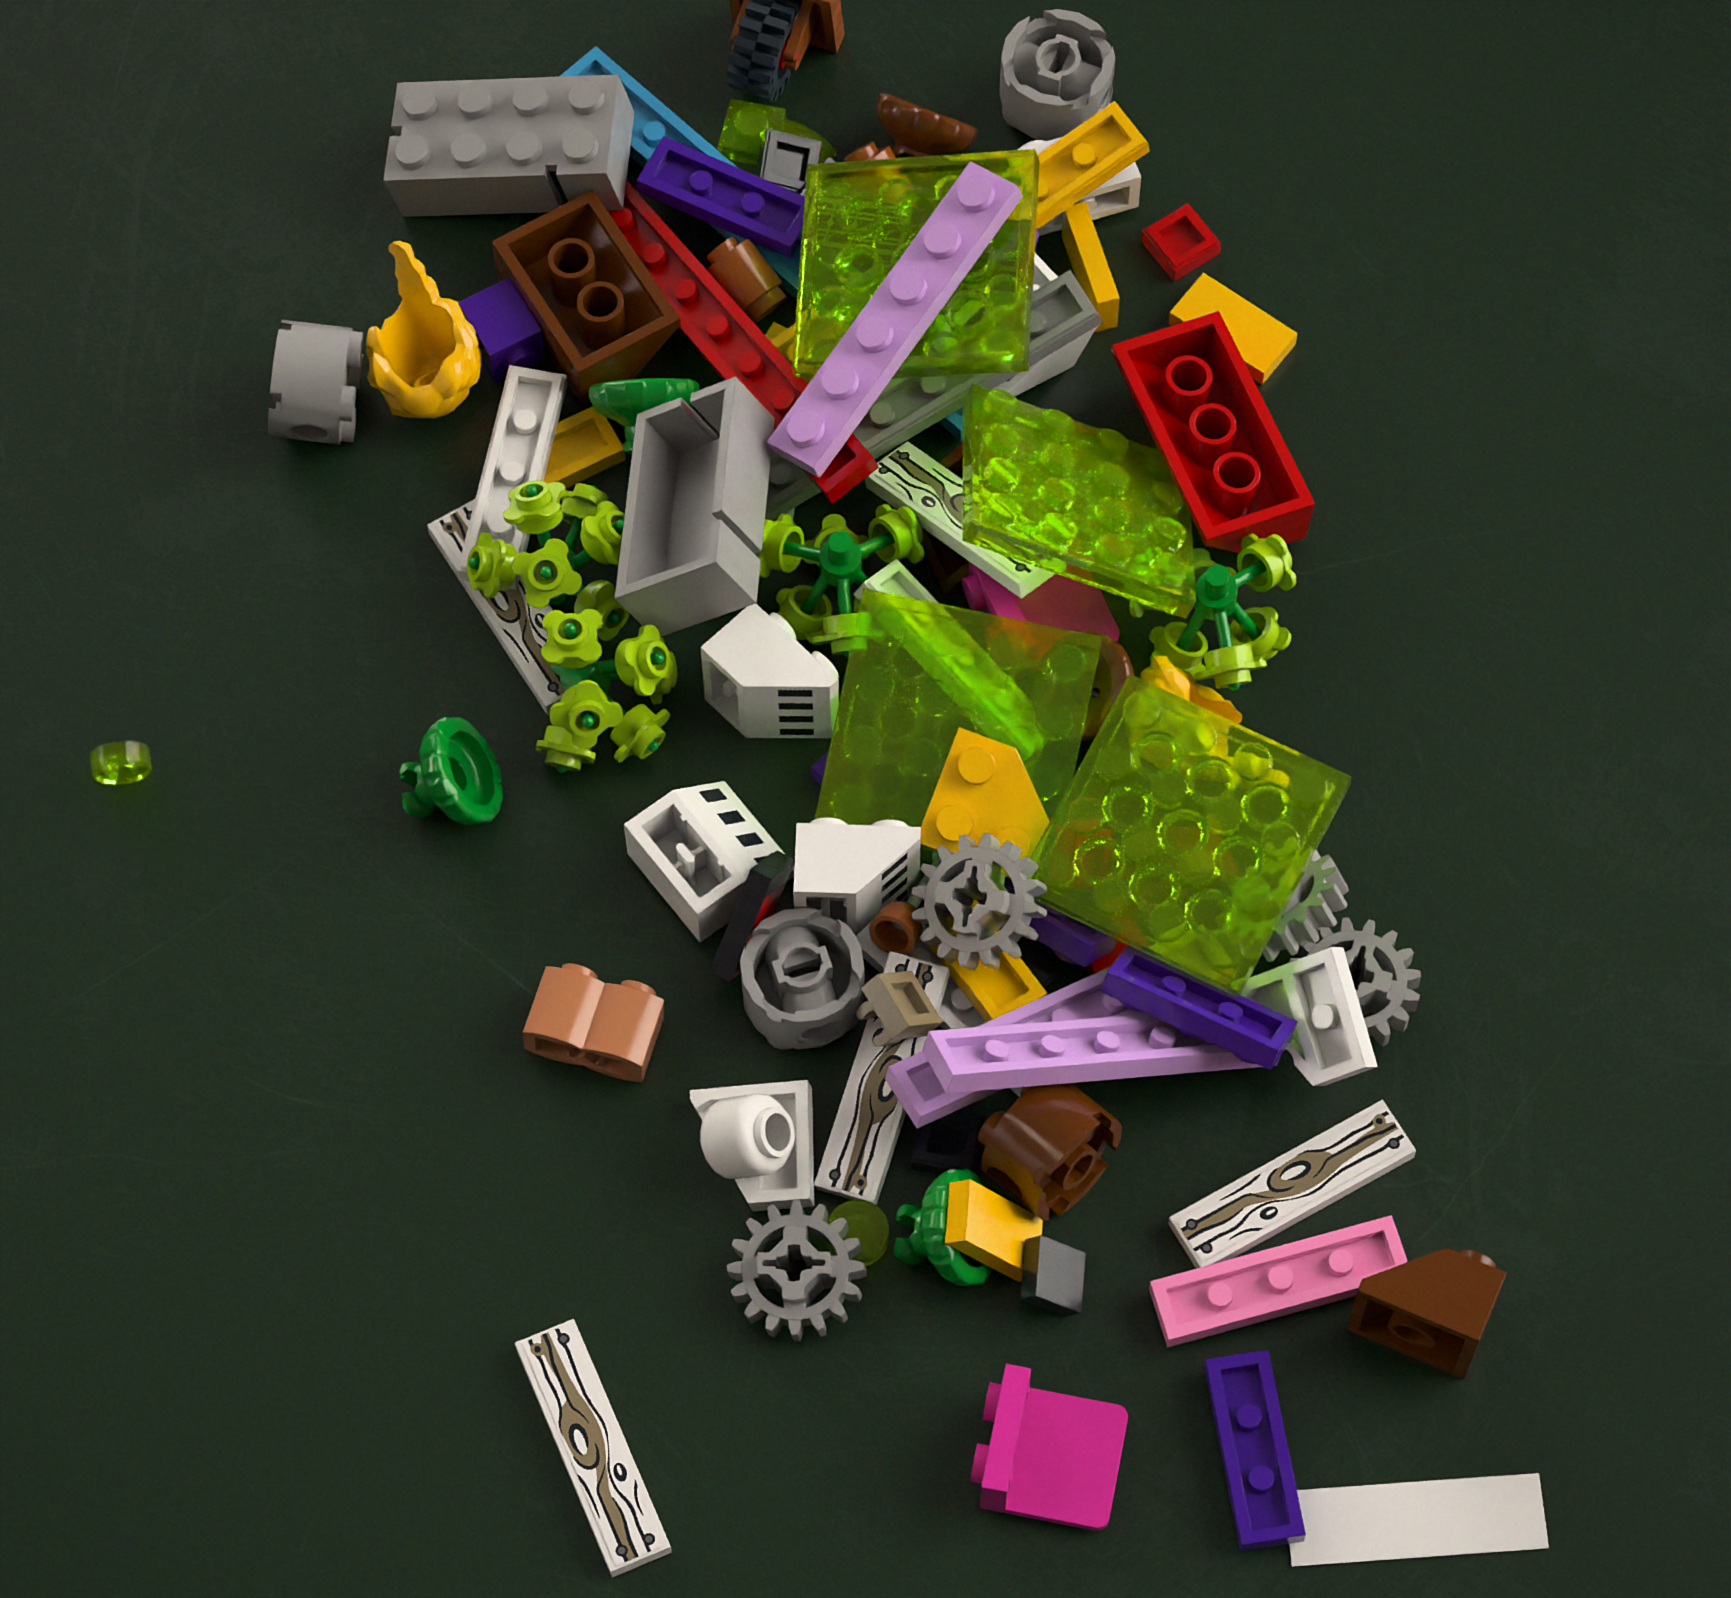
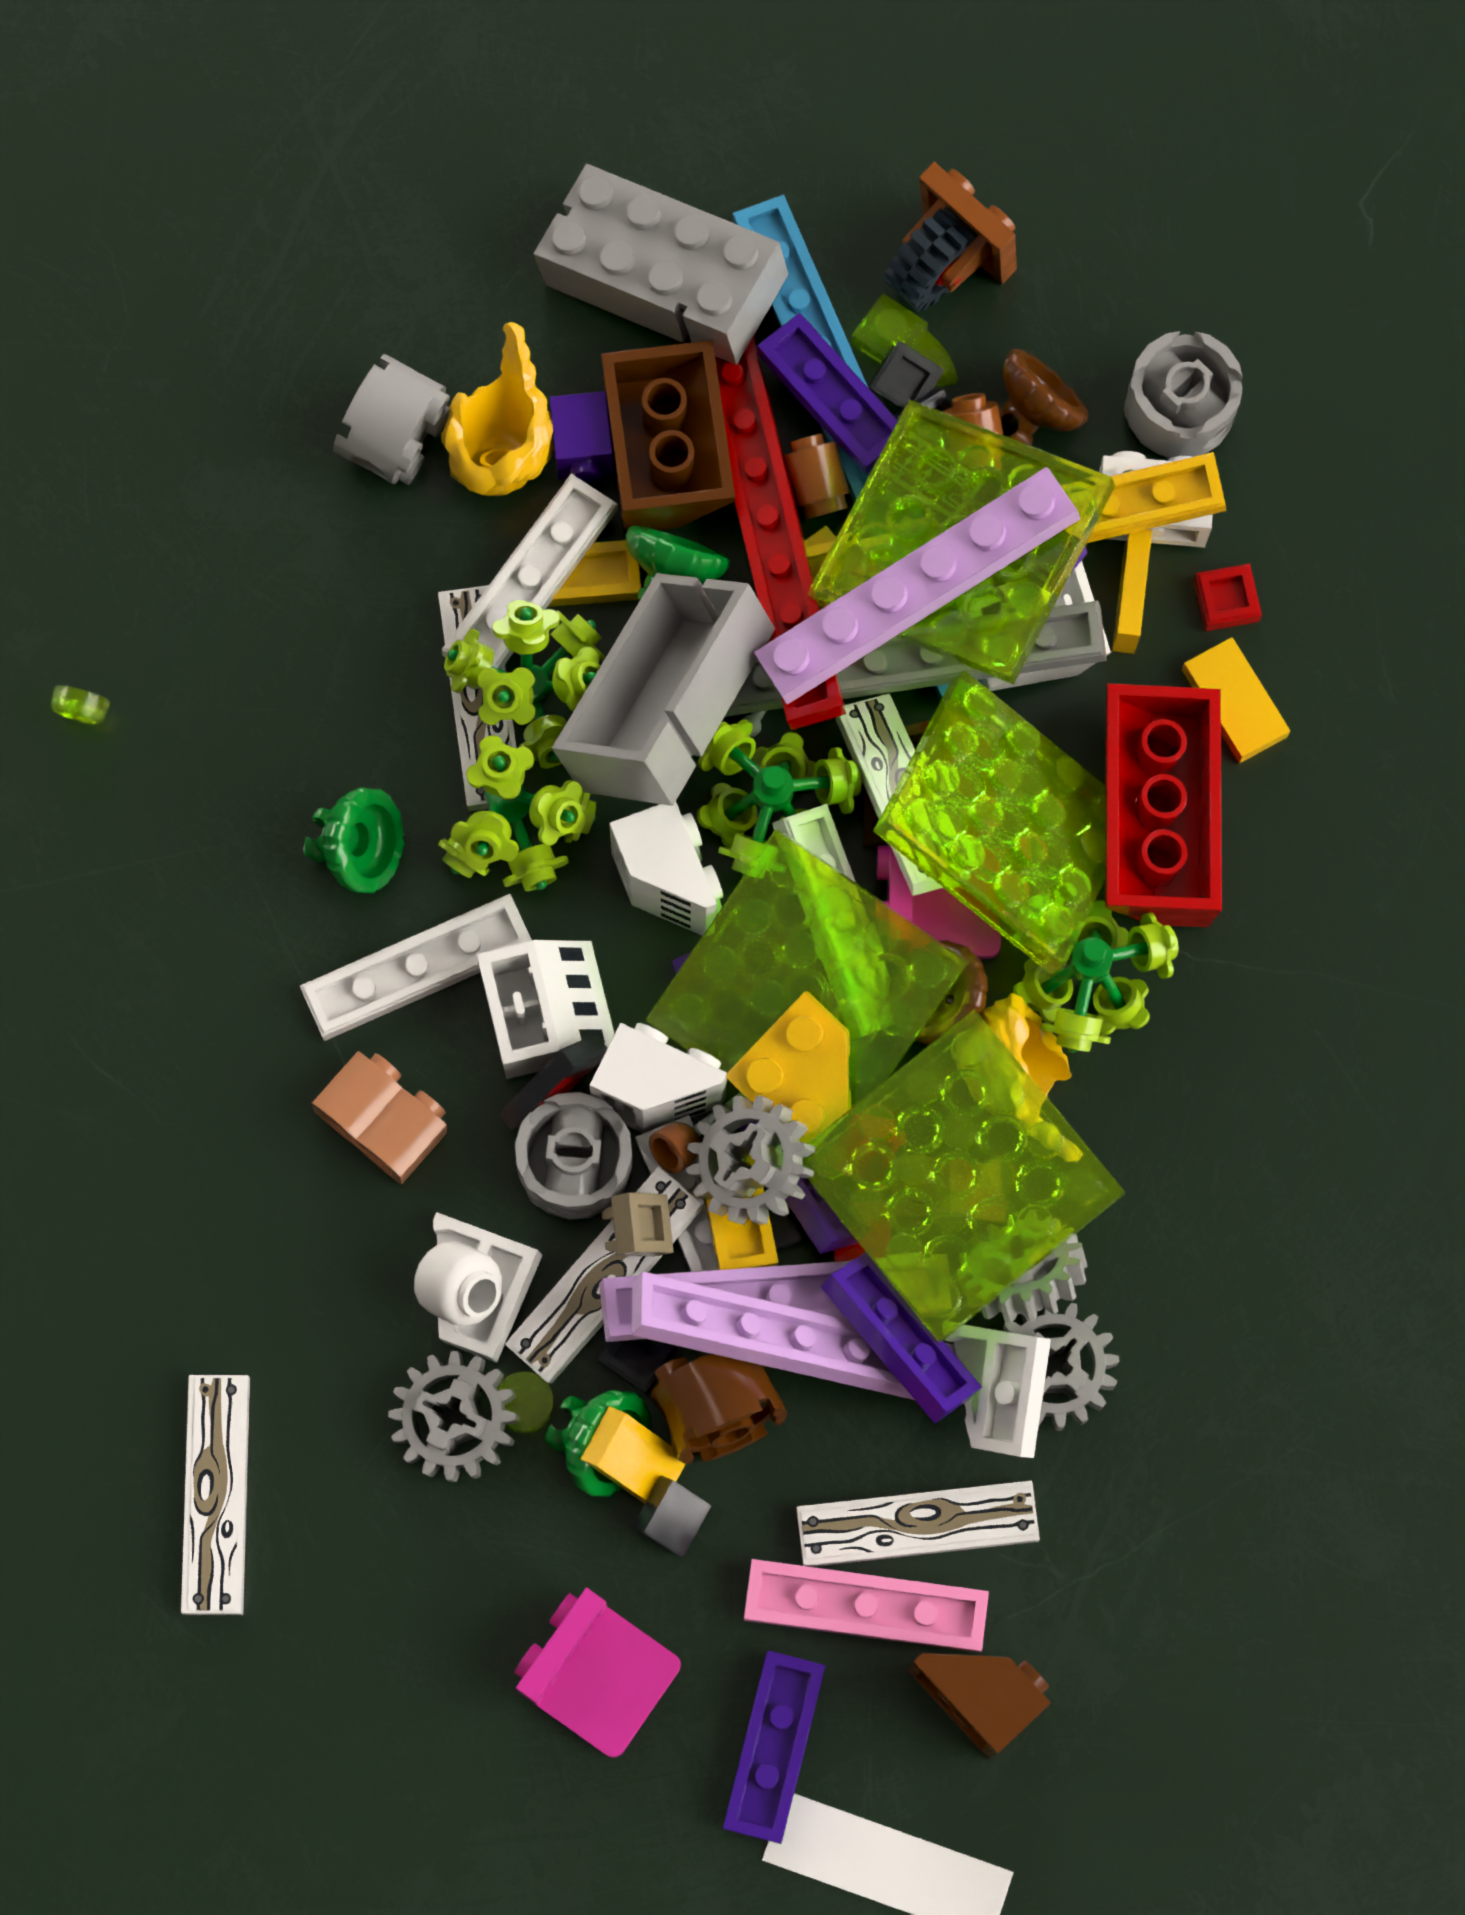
camera: 20 degrees right, 10 degrees up
(556, 880) = (411, 968): none -> white tile

